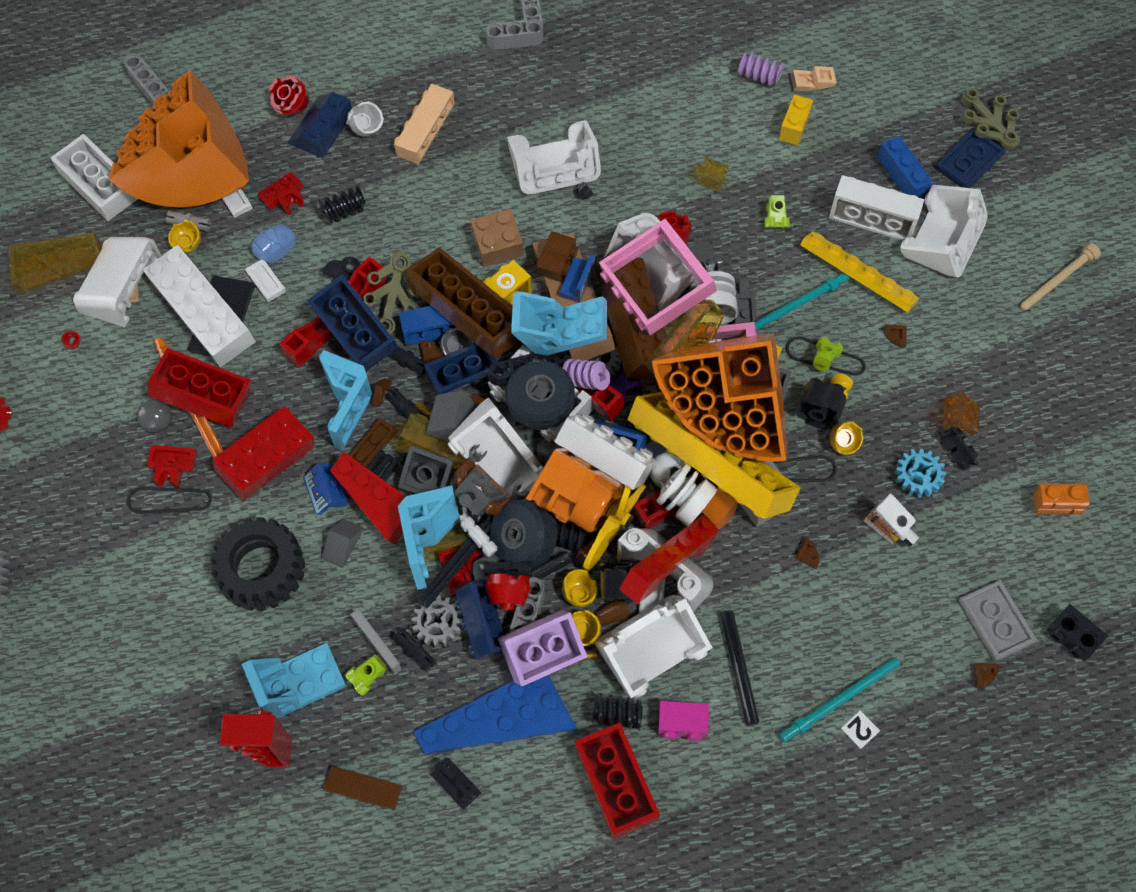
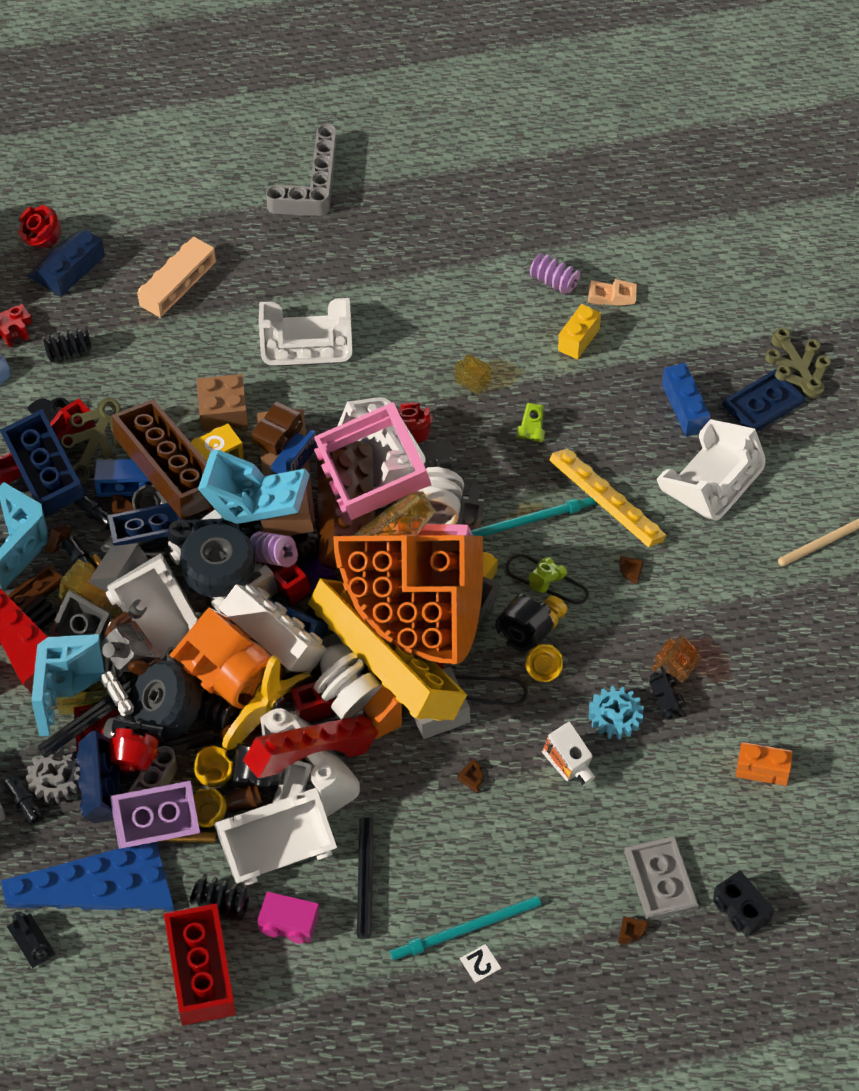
camera: 10 degrees right, 10 degrees down
(365, 119) = (113, 262): white helmet -> none
(584, 191) = (329, 370): black hinge -> none
(876, 208) = (639, 433): white brick -> none

